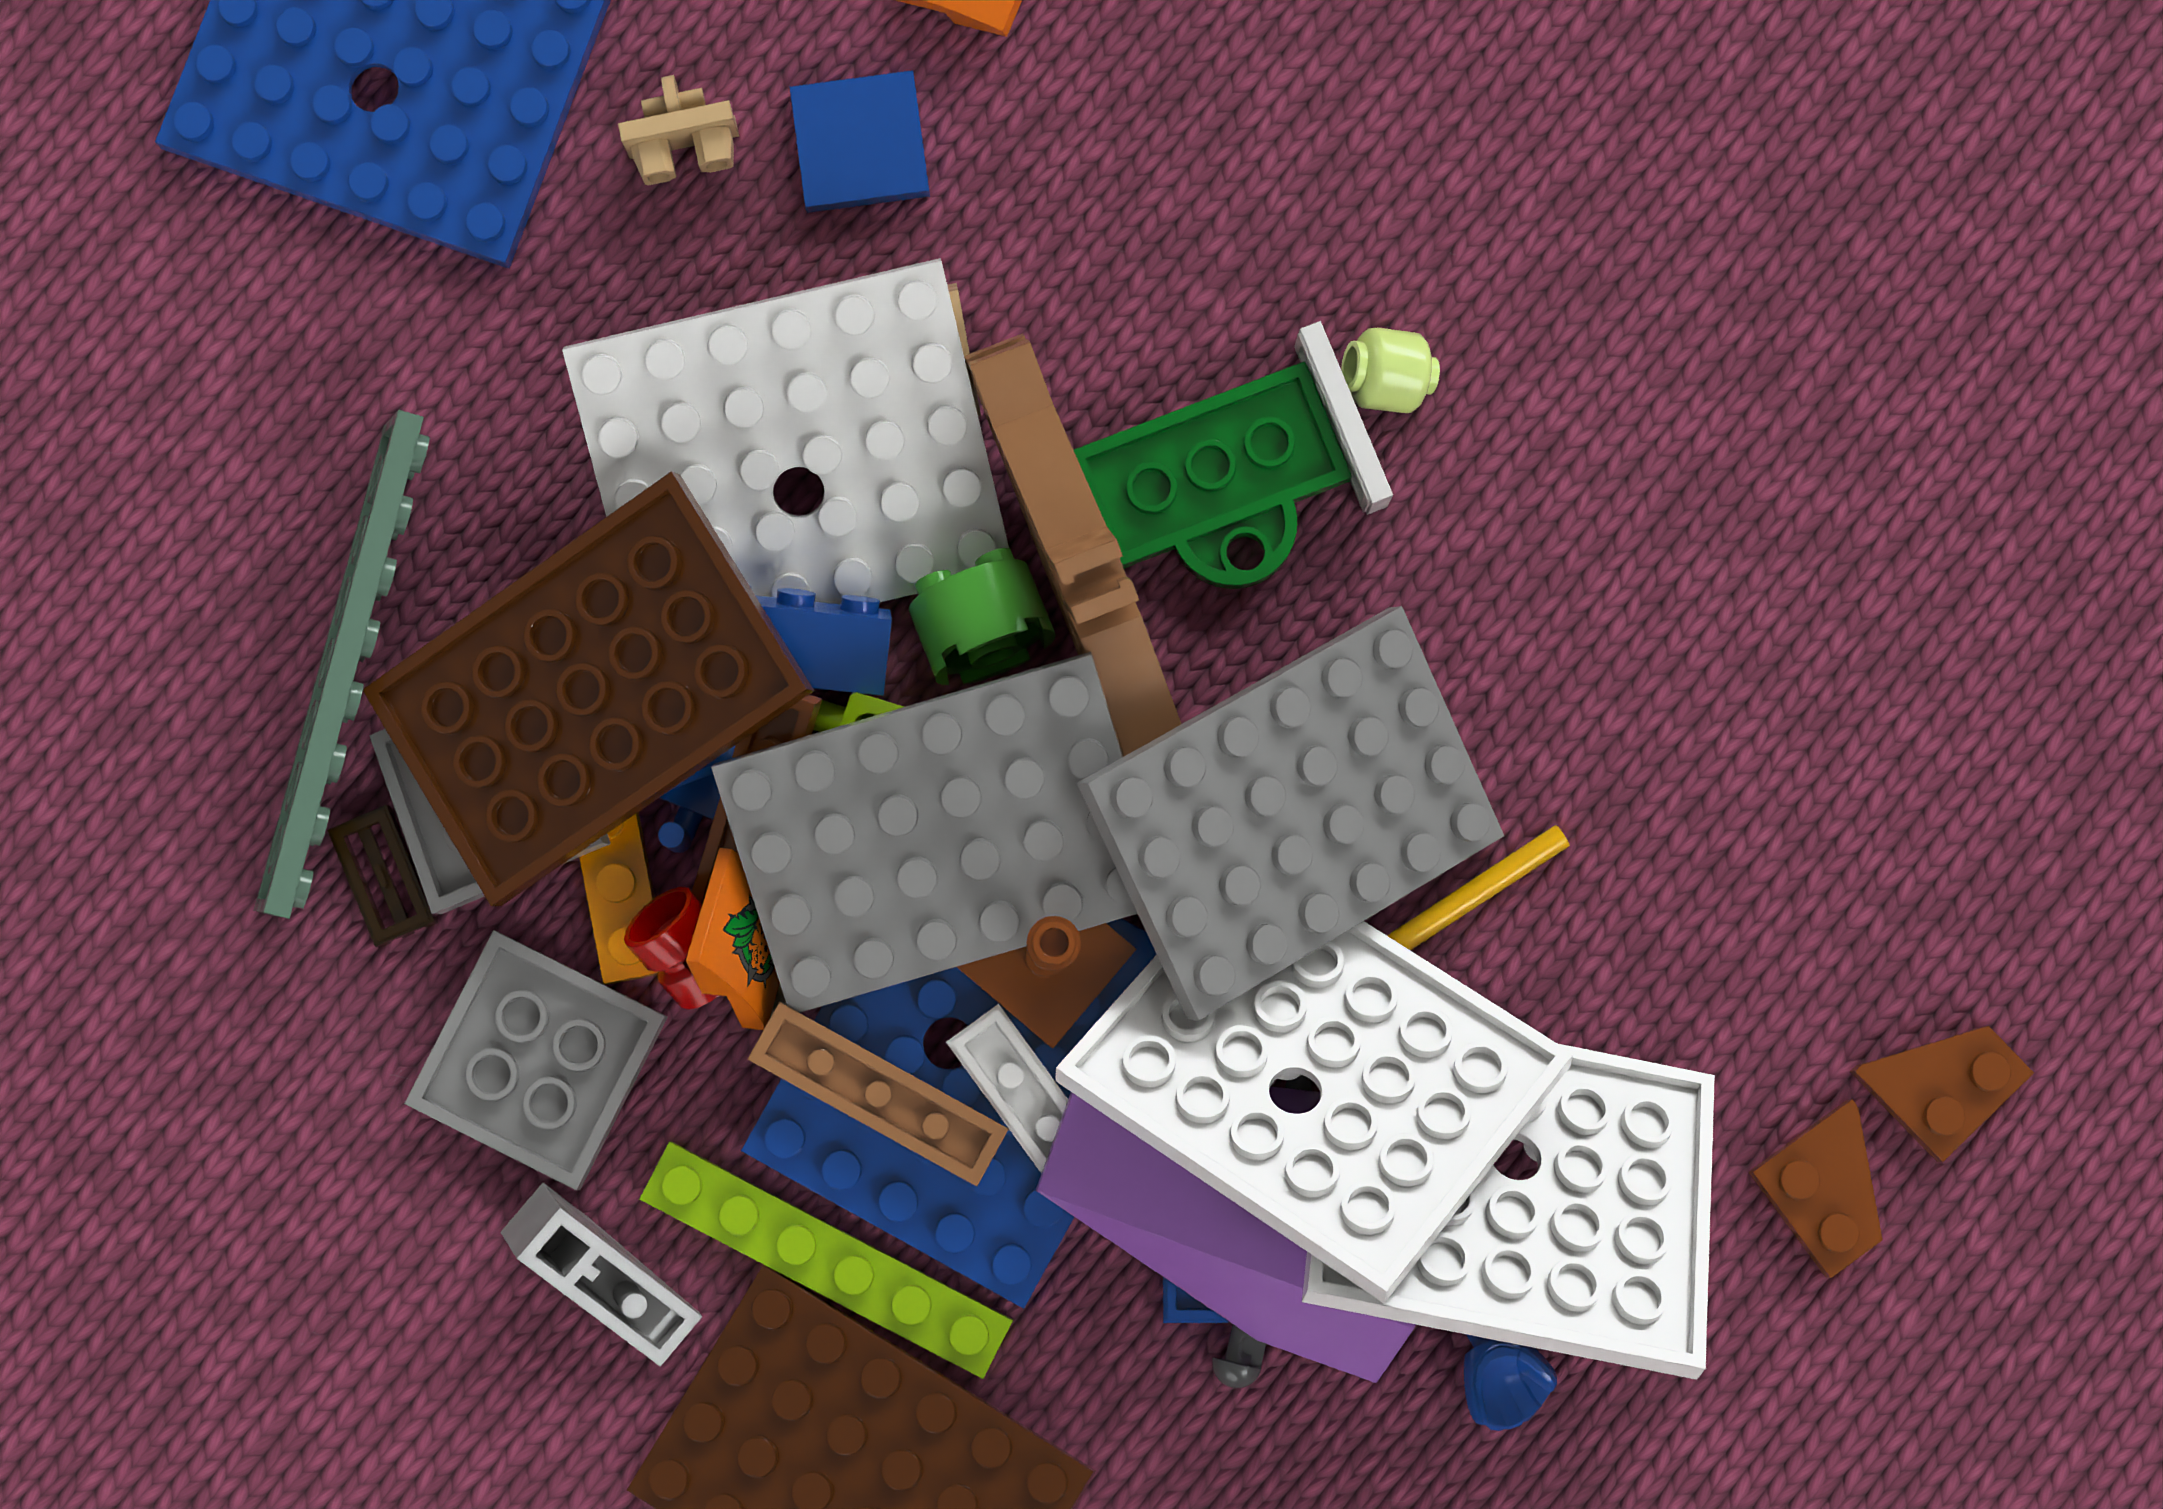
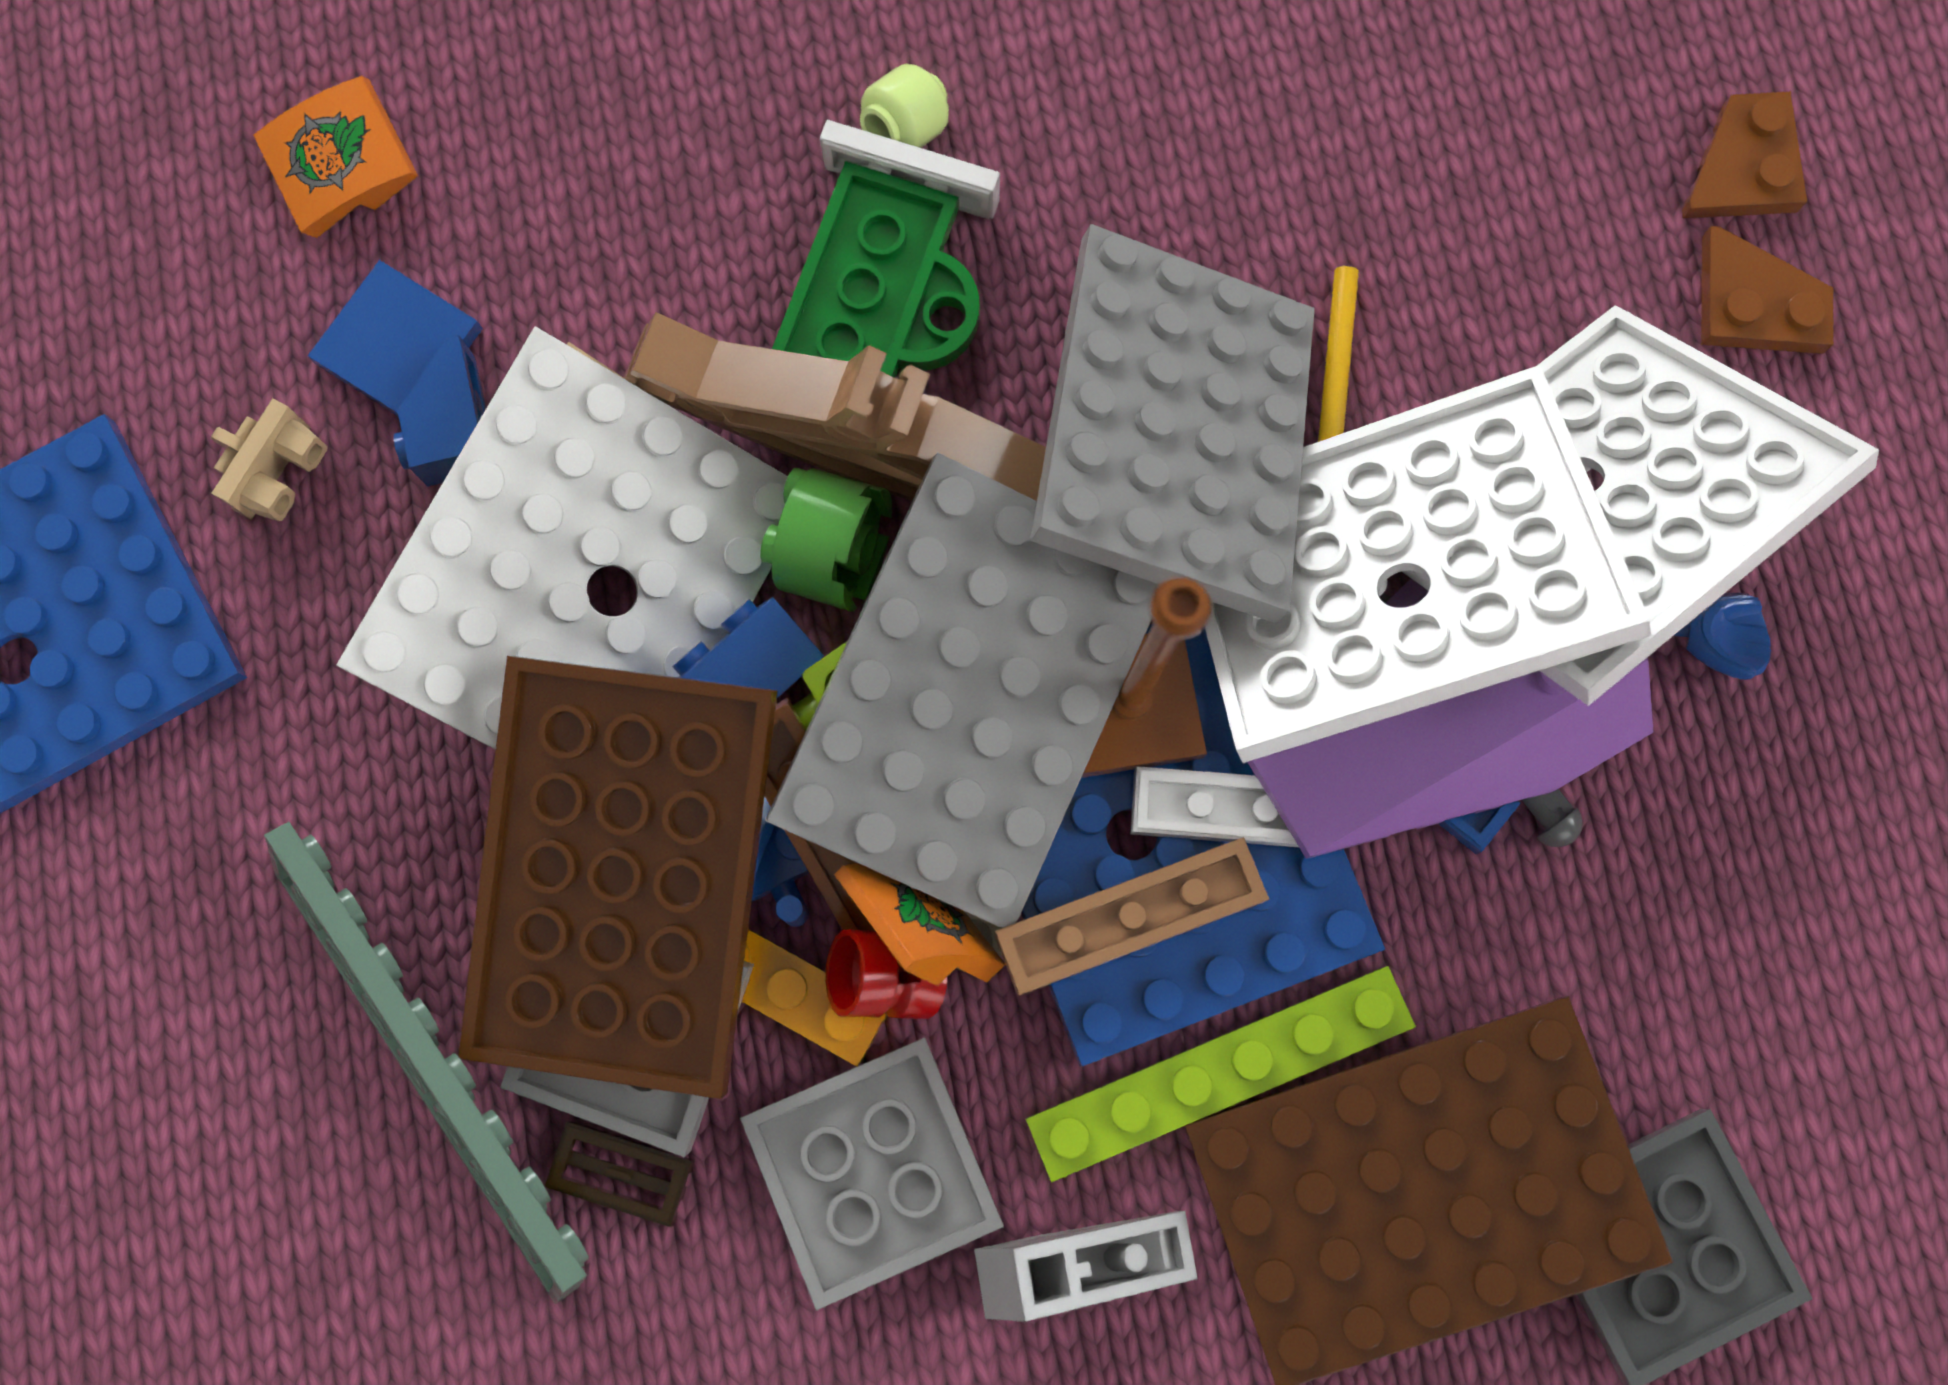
camera: 50 degrees left, 5 degrees down
(830, 237) = (440, 413): none -> blue slope

